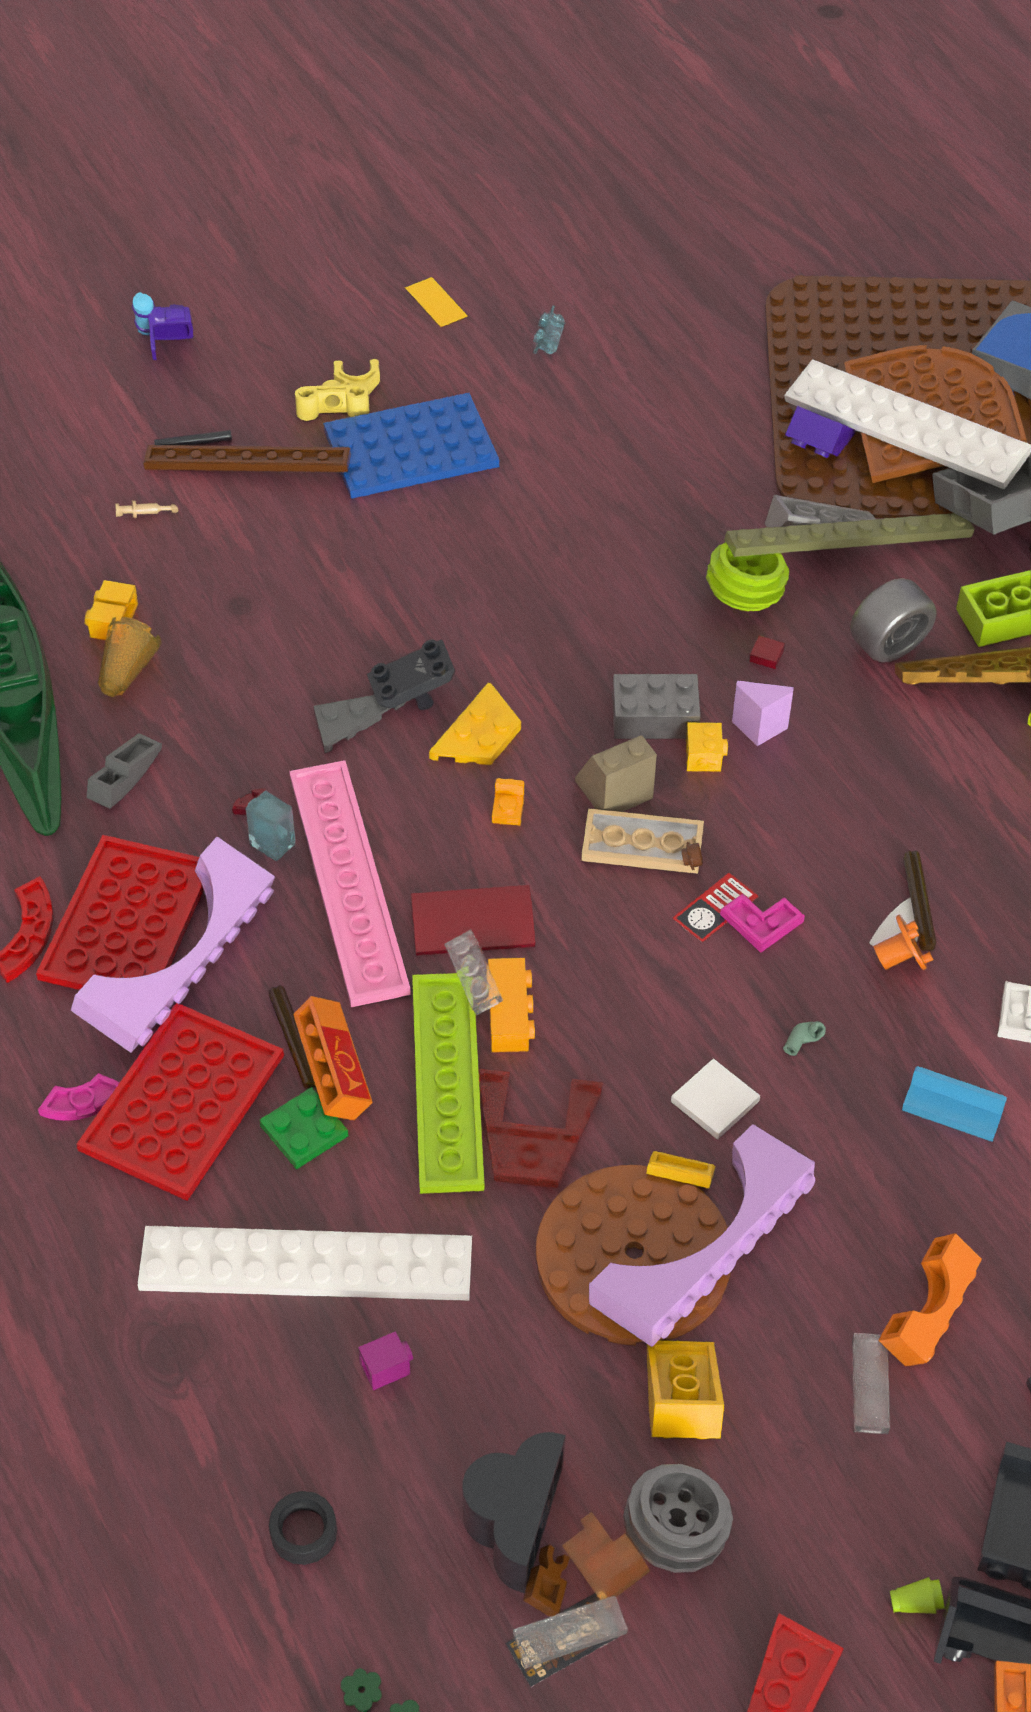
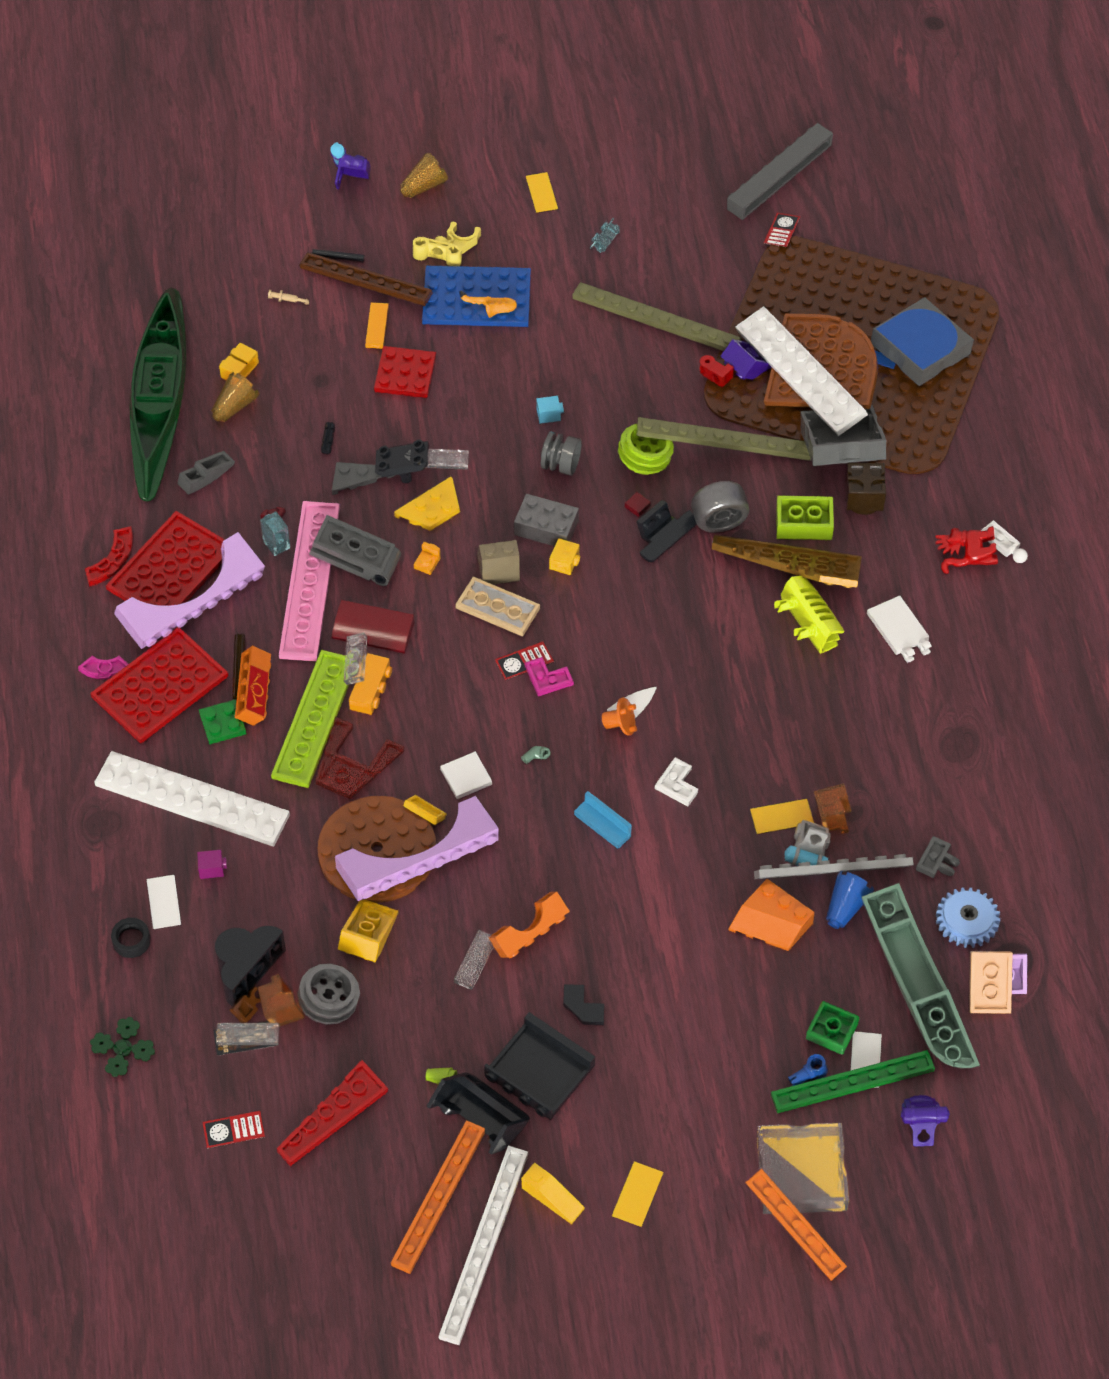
camera: 20 degrees right, 5 degrees up
(272, 314) = (423, 177): none -> clear yellow cone
(285, 677) = (328, 438): none -> black axle
(288, 514) = (377, 325): none -> light orange tile
(329, 1448) = (163, 902): none -> white sticker
(356, 564) = (405, 372): none -> red plate
(402, 818) = (355, 551): none -> dark grey hinge
(444, 447) = (493, 305): none -> light orange piece
(478, 659) = (448, 459): none -> clear plate
(583, 560) = (549, 409): none -> medium azure brick
(634, 610) = (557, 452): none -> dark grey wheel
(667, 412) = (653, 316): none -> olive plate
(692, 855) = (519, 624): reddish brown plate -> none
(735, 207) = (779, 171): none -> dark grey brick
(761, 710) = (610, 543): lavender slope -> none
(775, 272) = (781, 229): none -> sticker
(786, 455) = (715, 371): none -> red leg
(792, 511) = (703, 415): light grey wedge -> none
(821, 676) = (662, 530): none -> black plate
(919, 900) = (649, 692): dark brown axle -> none

